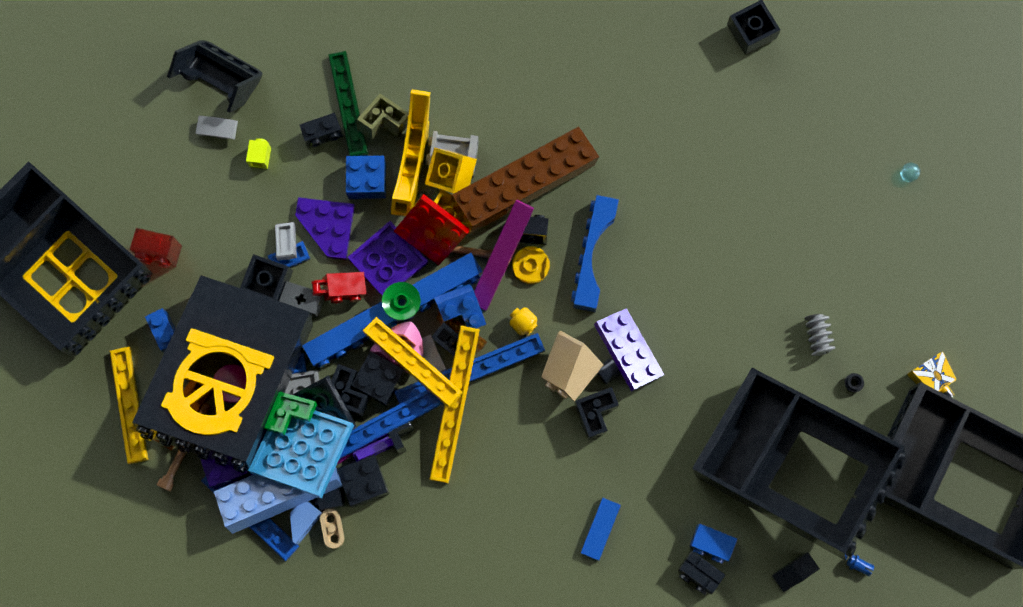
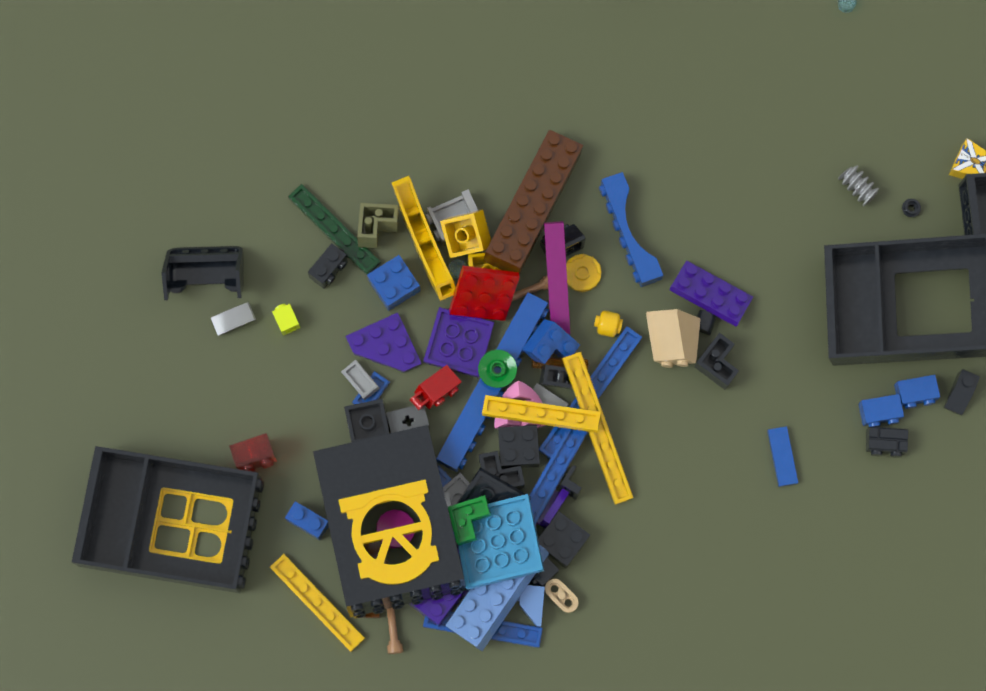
camera: 35 degrees left, 0 degrees up
(756, 546) = (917, 391): none -> blue brick

